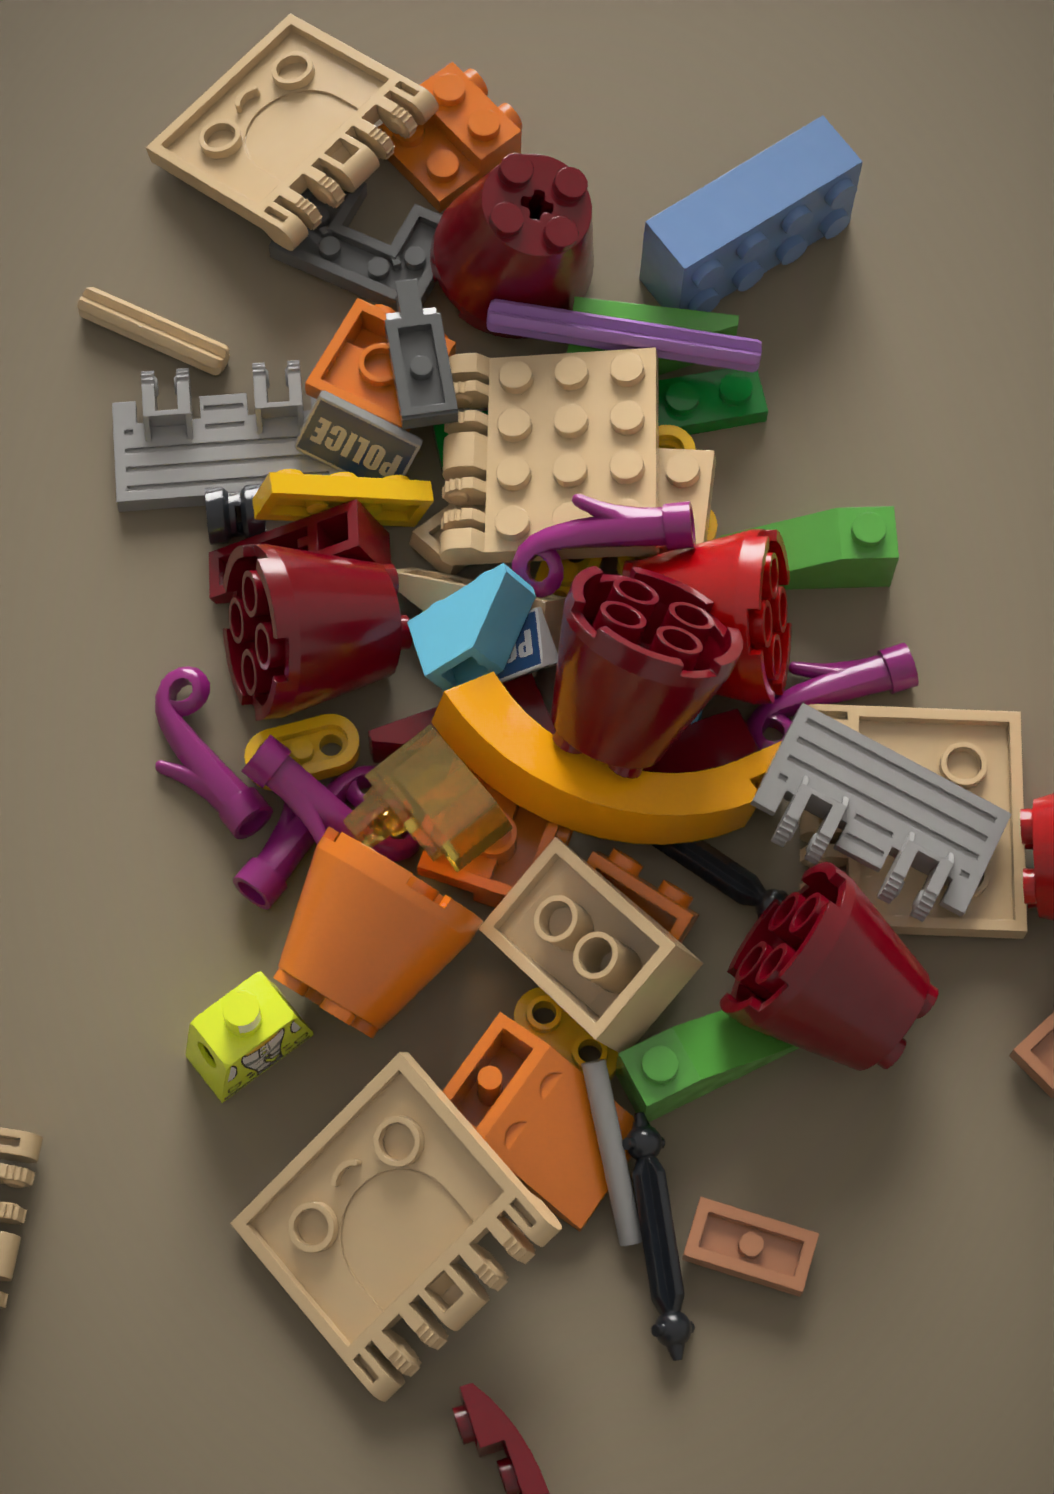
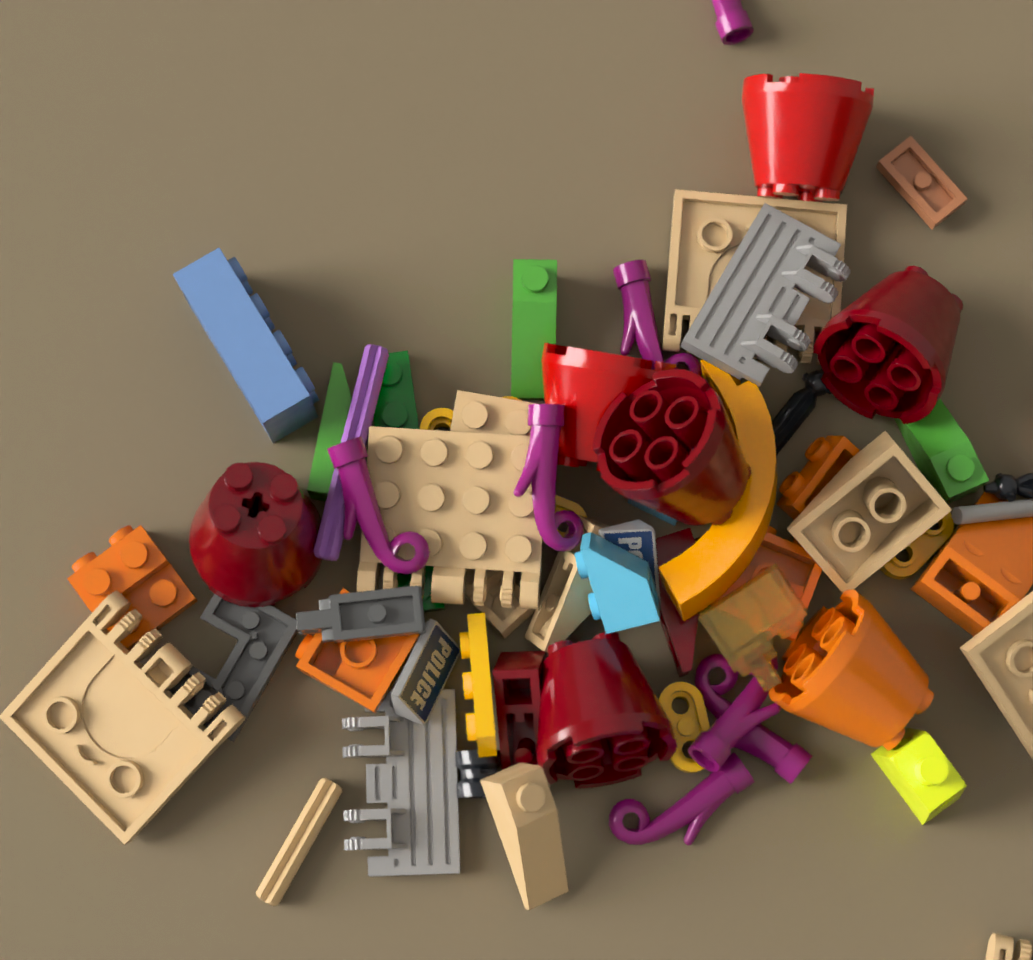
camera: 85 degrees left, 10 degrees up
(159, 561) = (528, 831): none -> tan slope
(546, 345) = (362, 505): none -> magenta plant

